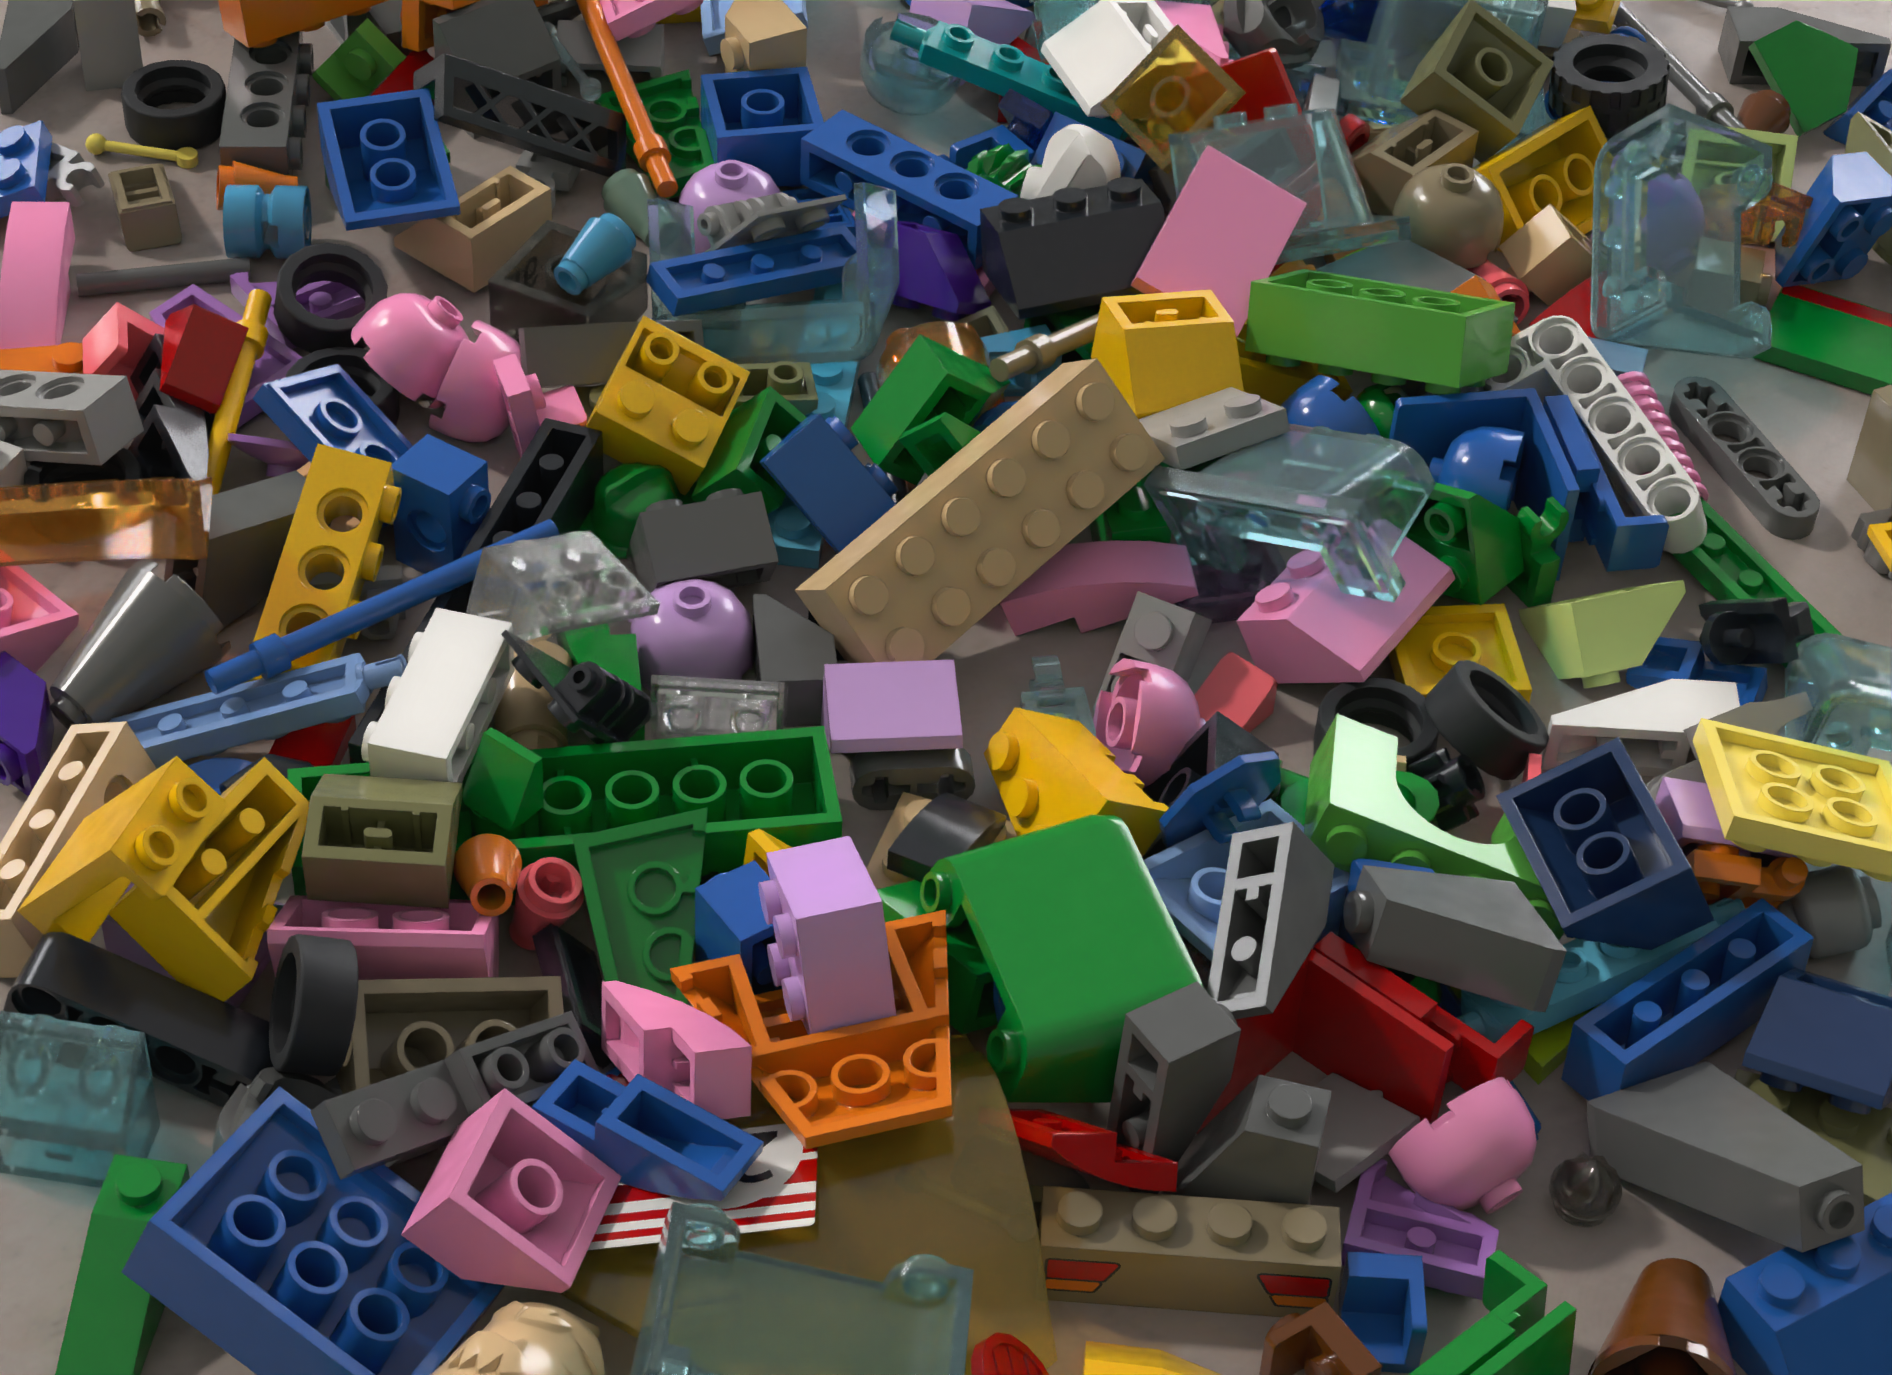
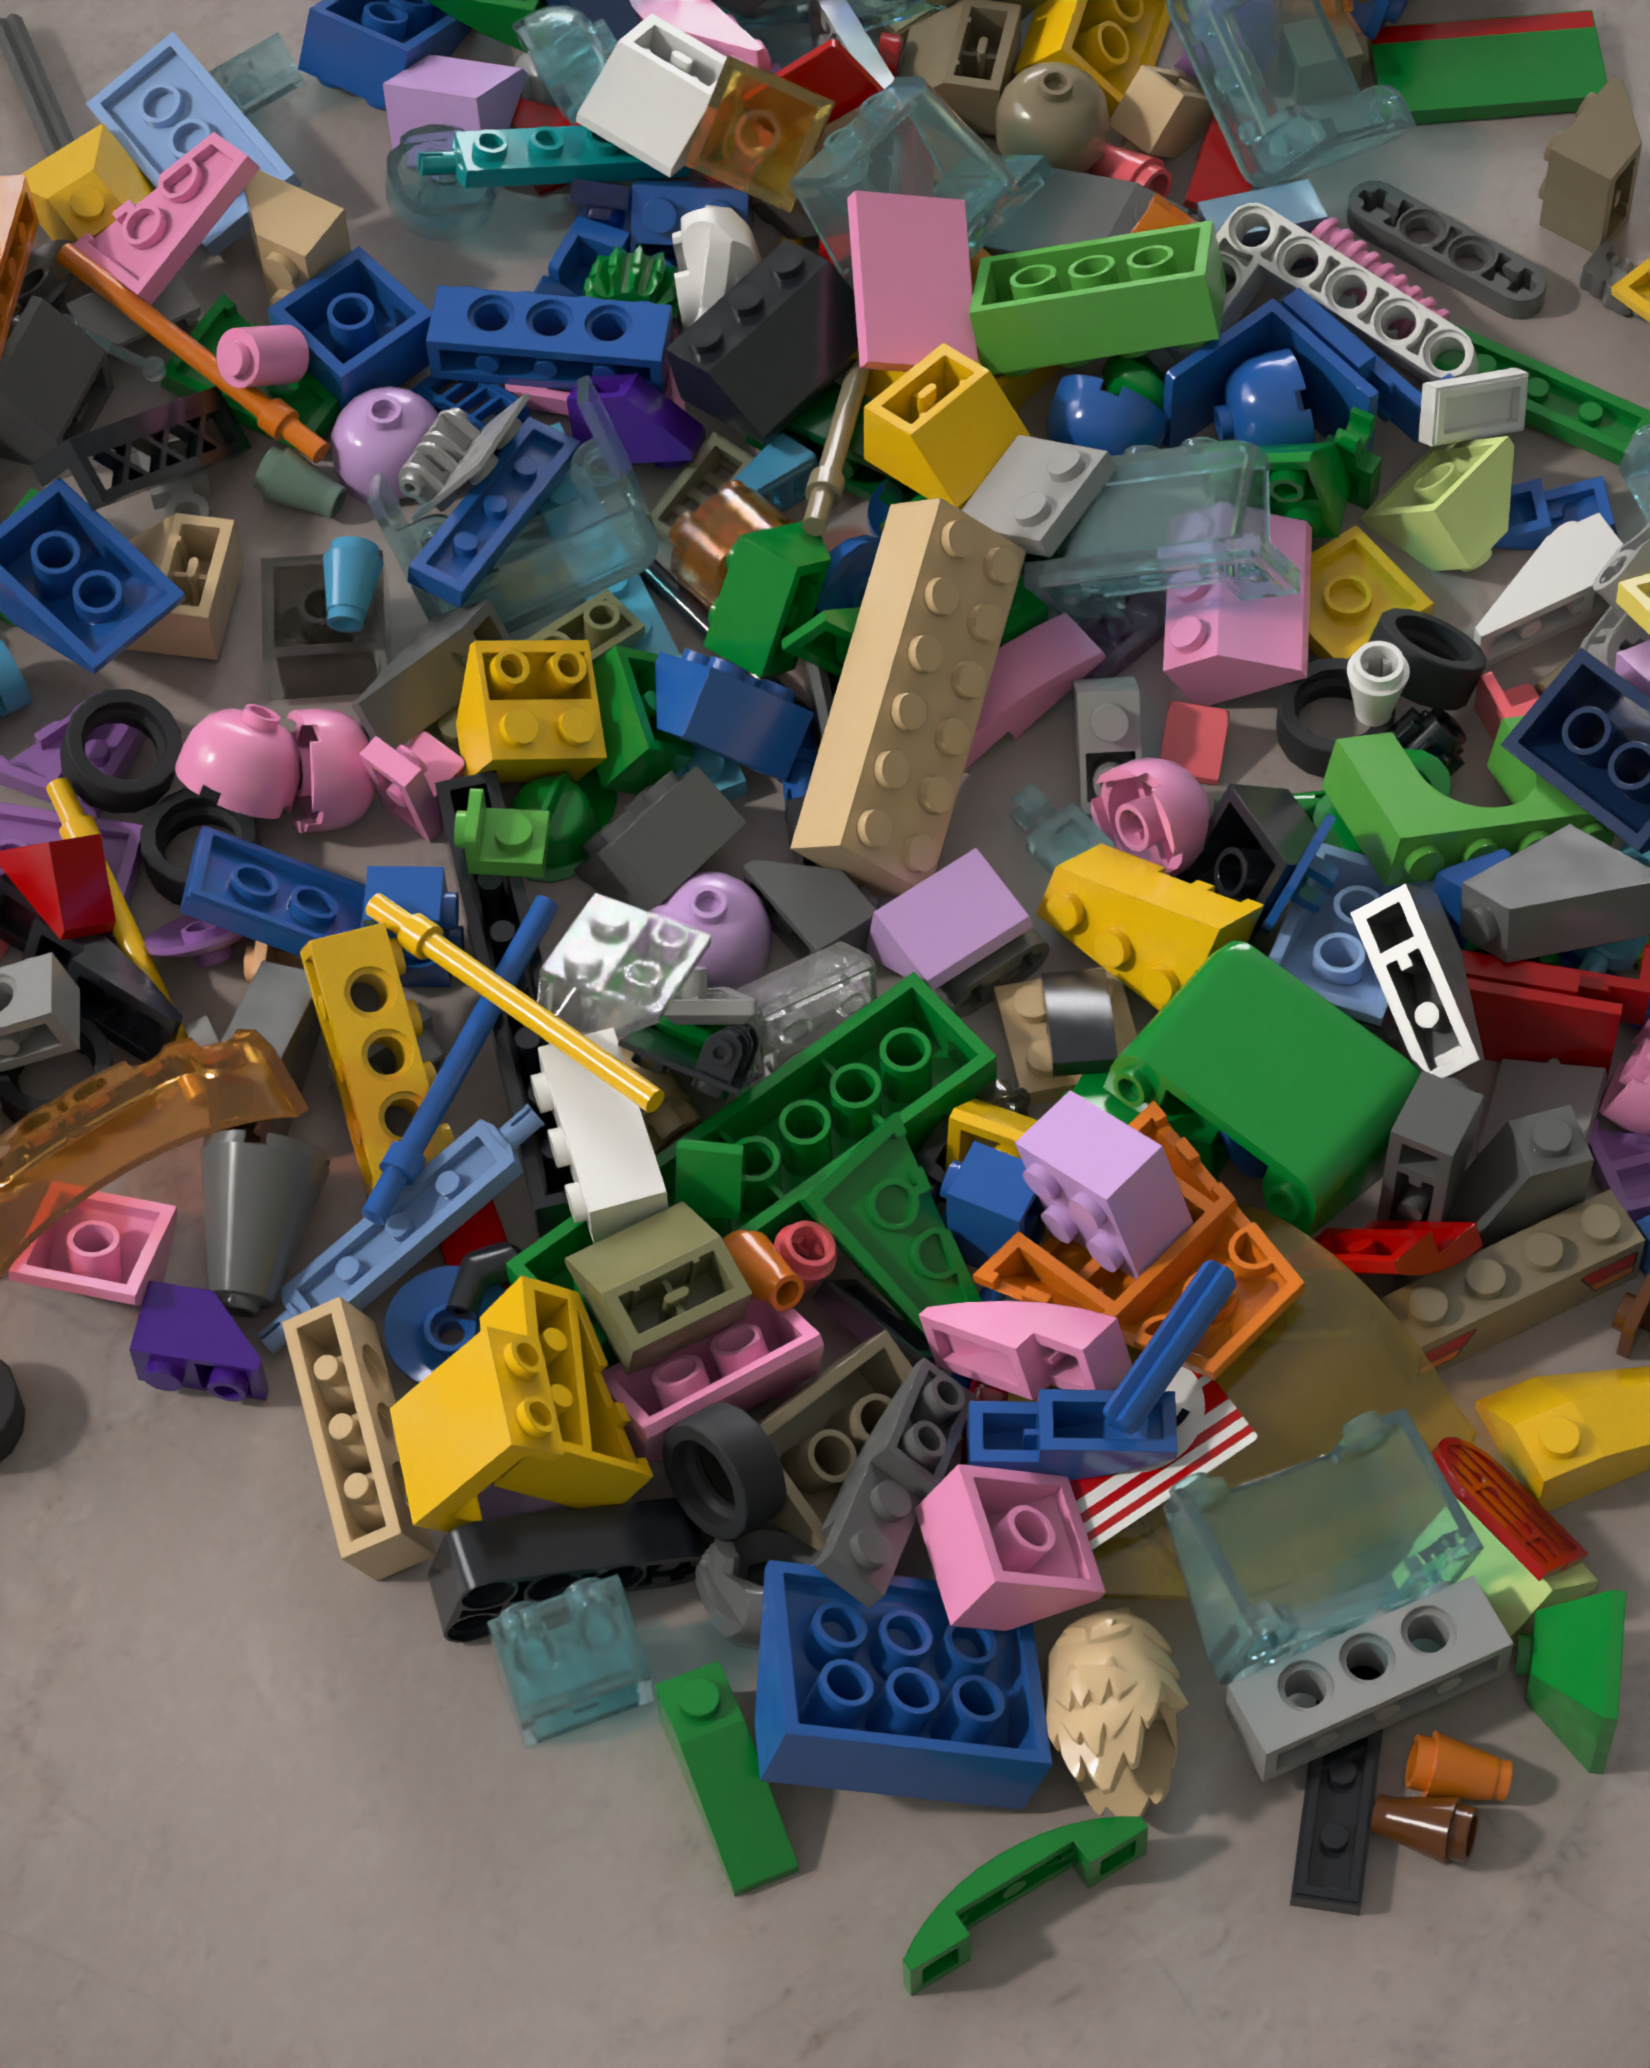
camera: 25 degrees left, 15 degrees up
(419, 497) = (426, 940): none -> yellow bar
(555, 471) = (502, 839): none -> bright green bracket
(619, 656) = (709, 1006): none -> light grey piece
(667, 98) = (262, 356): none -> bright pink brick
(779, 1093) = (1169, 1347): none -> blue axle
(1416, 699) = (1376, 681): none -> white cone
(1672, 552) = (1473, 406): none -> white tile
(1754, 630) = (1581, 450): black hips -> none

